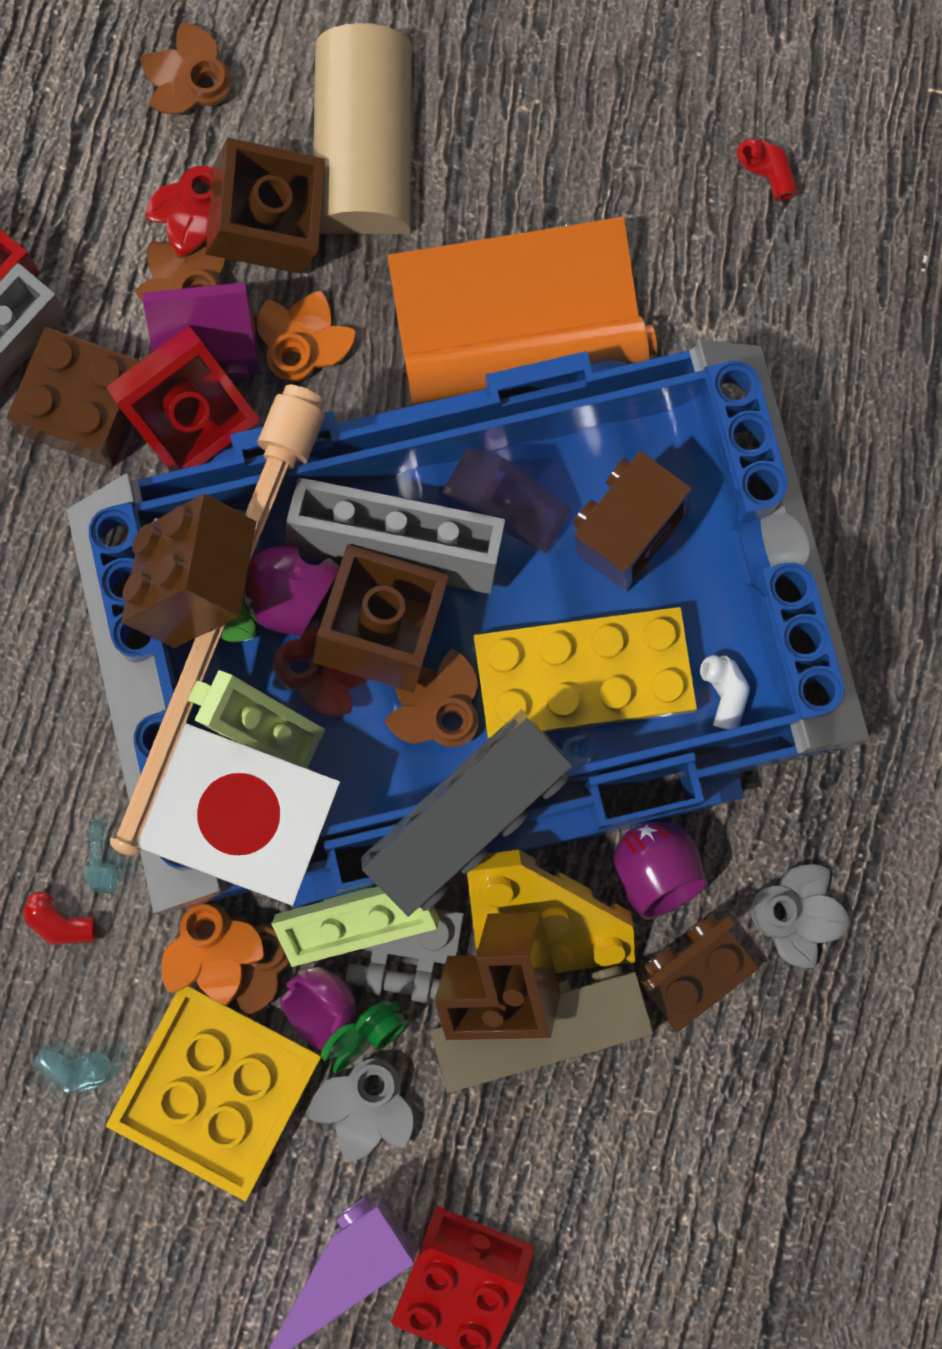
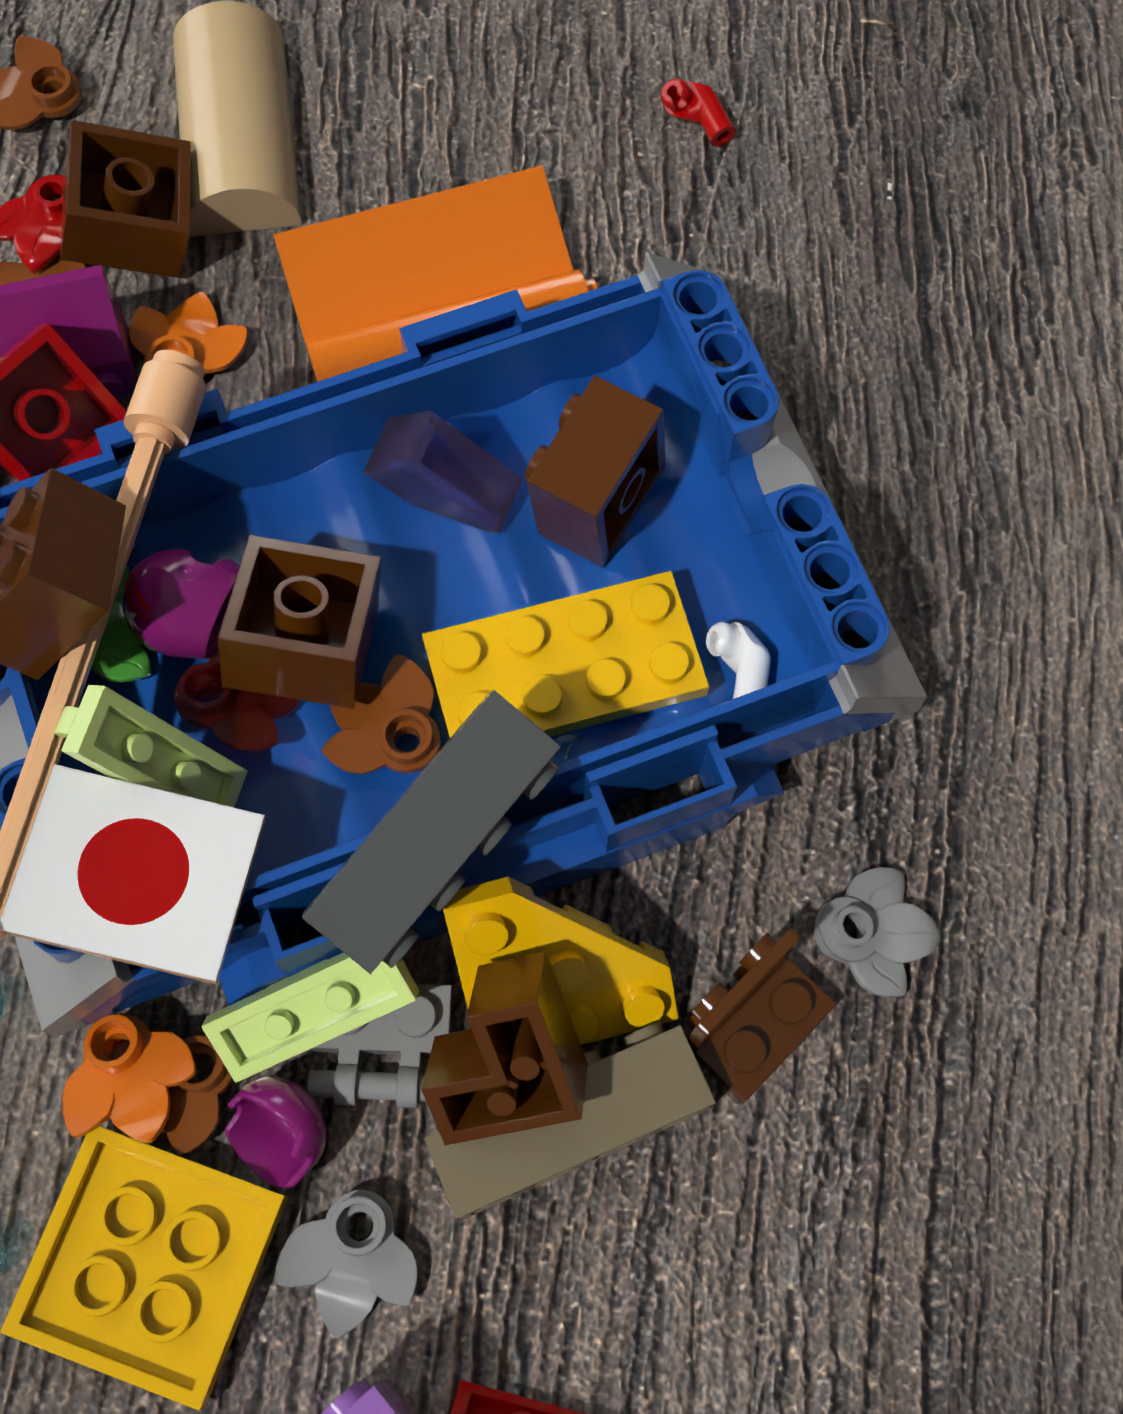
camera: 10 degrees left, 10 degrees down
(375, 1027) = (350, 1143): green plate -> none
(428, 535) = (387, 519): light grey brick -> none
(655, 861) = (682, 882): magenta helmet -> none

